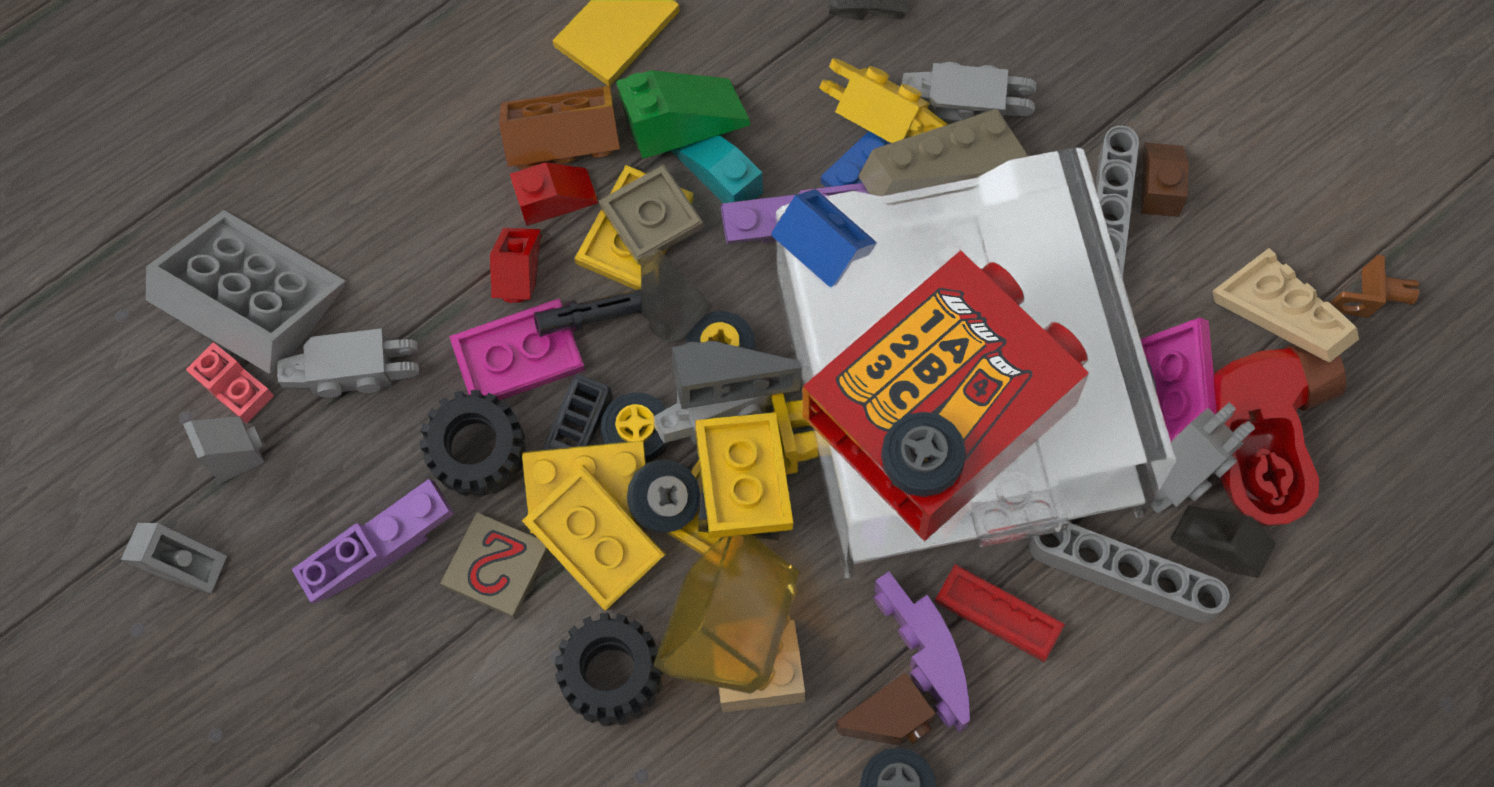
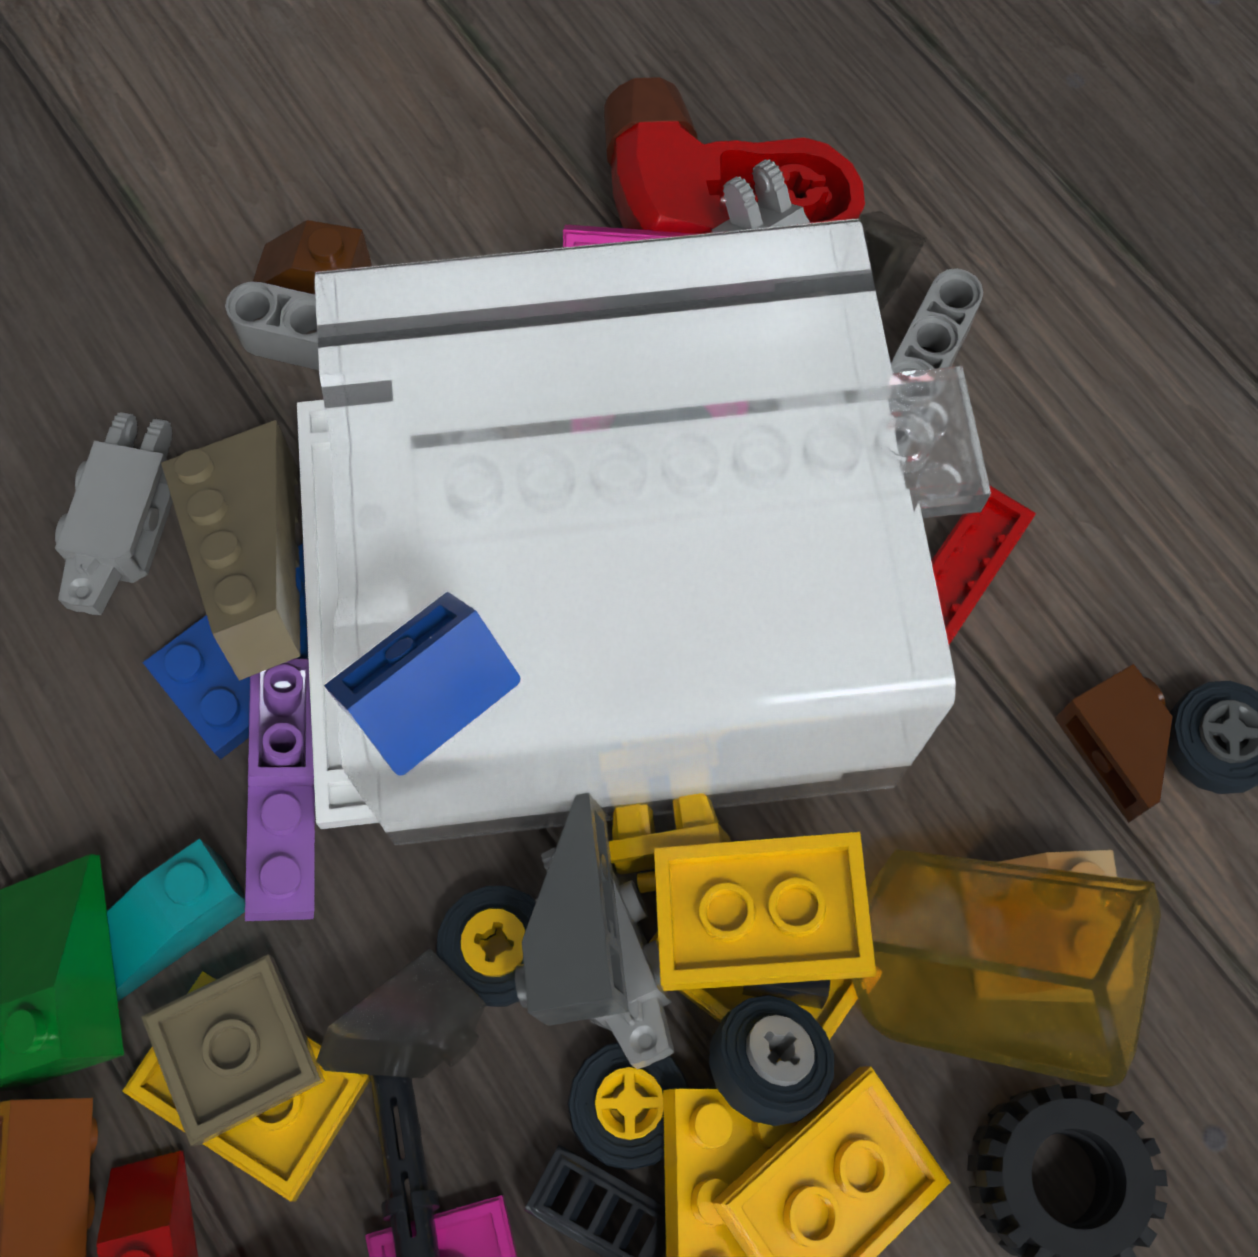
camera: 90 degrees left, 0 degrees up
(880, 104) = (110, 638): yellow hinge -> none
(927, 437) = (948, 475): black wheel -> none
(937, 663) = (1037, 662): medium lavender slope -> none
(953, 352) = (769, 492): brick -> none
(1285, 306) = (543, 146): tan wing -> none
(1376, 290) = (524, 51): dark orange bracket -> none

